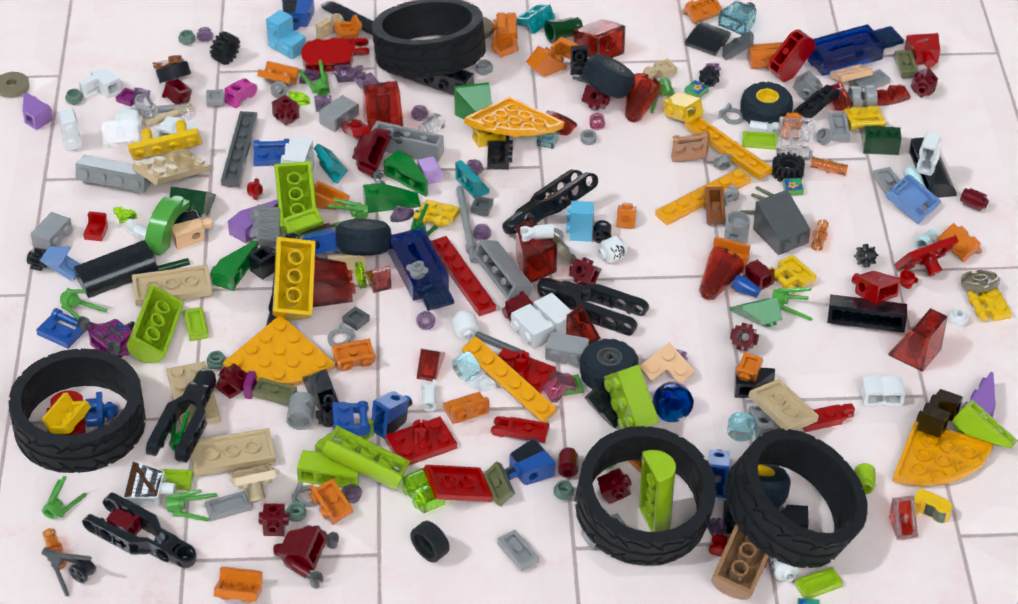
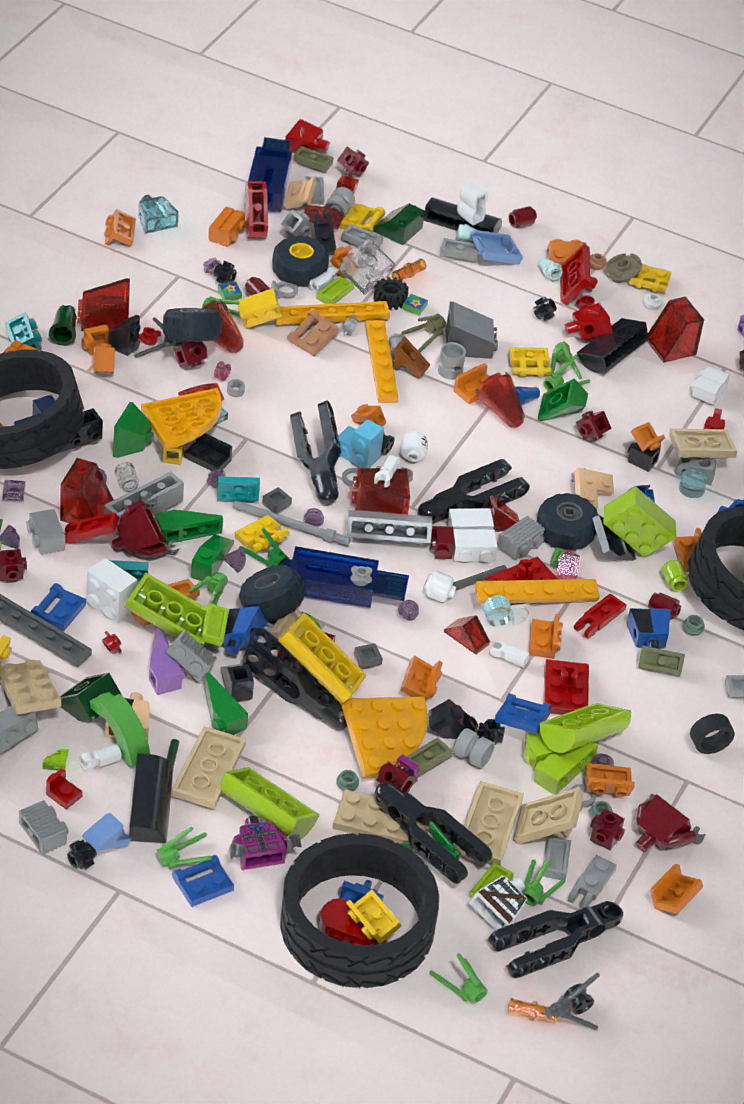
camera: 65 degrees left, 0 degrees up
(125, 521) = (535, 939): dark red brick -> none
(196, 324) = (281, 775): lime tile -> none
(216, 535) = (593, 880): none -> light grey hinge
(342, 329) = (371, 673): light grey piece -> none
(379, 279) = (324, 611): clear red slope -> none
(389, 413) = (526, 683): blue torso -> none
(419, 491) = (644, 710): clear neon green brick -> none
(430, 169) = (196, 504): lavender piece -> none
(457, 483) = (648, 684): red tile -> none
(463, 276) = (388, 561): red plate -> none
(584, 271) = (431, 477): dark red brick -> none
(663, 68) = (183, 295): tan plate -> none
(707, 38) = (164, 247): black slope -> none
(710, 100) = (255, 286): none -> dark red brick
(738, 45) = (201, 233): dark grey plate -> none
(759, 274) = (520, 376): dark red brick -> none
(820, 235) = (501, 325): clear orange pin -> none
(822, 288) = (563, 354): none -> bright green plant
(972, 264) = (597, 261): none -> nougat plate

